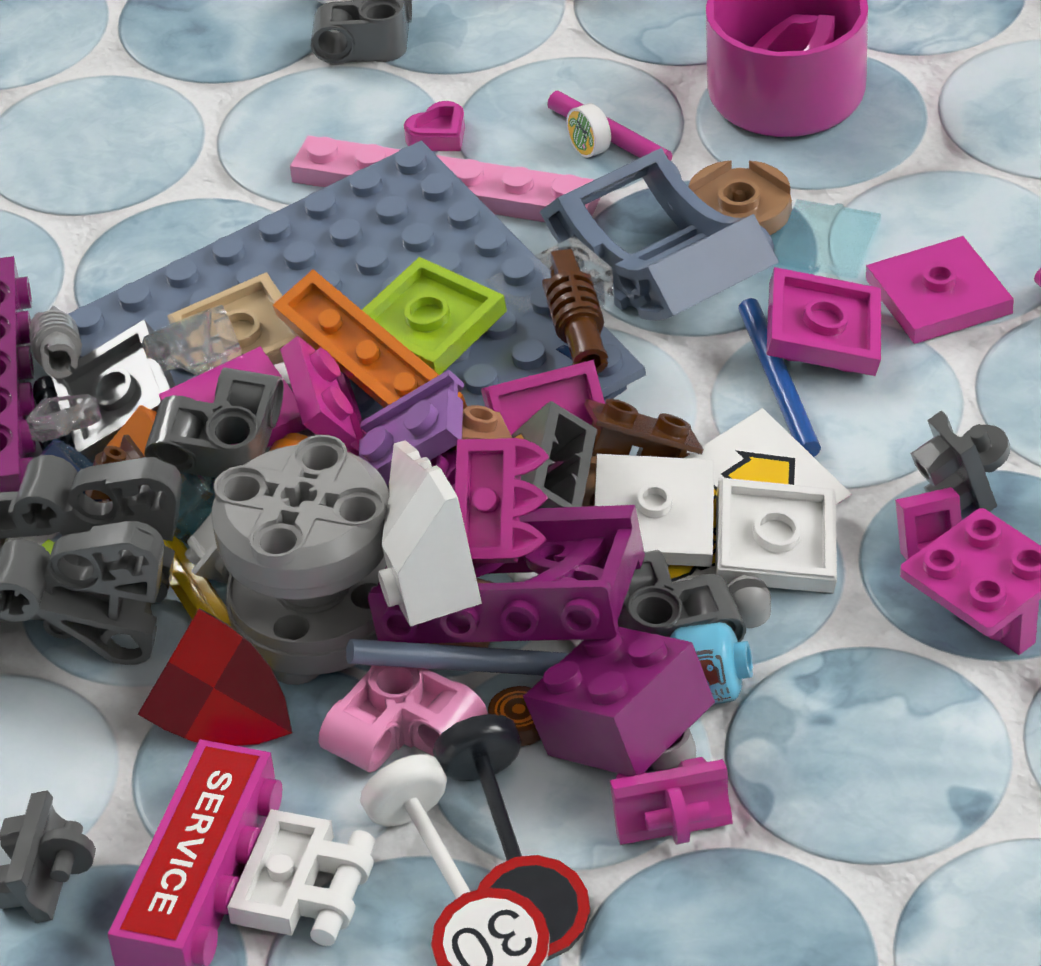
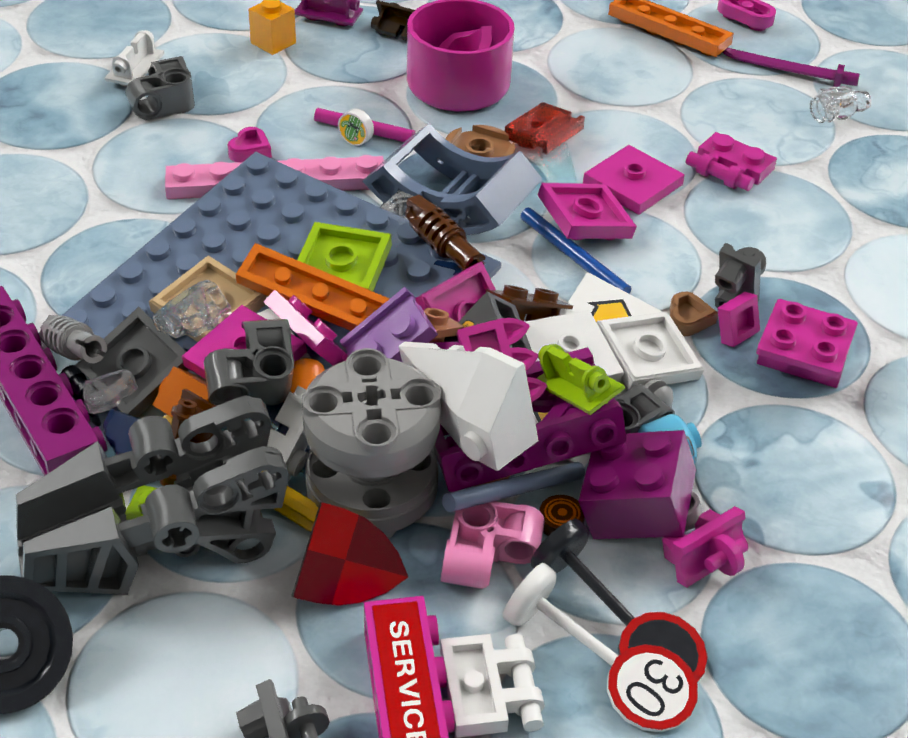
camera: 30 degrees left, 0 degrees up
(576, 539) = (575, 380): none -> lime hinge
(853, 184) = (544, 127): none -> clear red plate
(873, 502) = (691, 313): none -> medium nougat tile

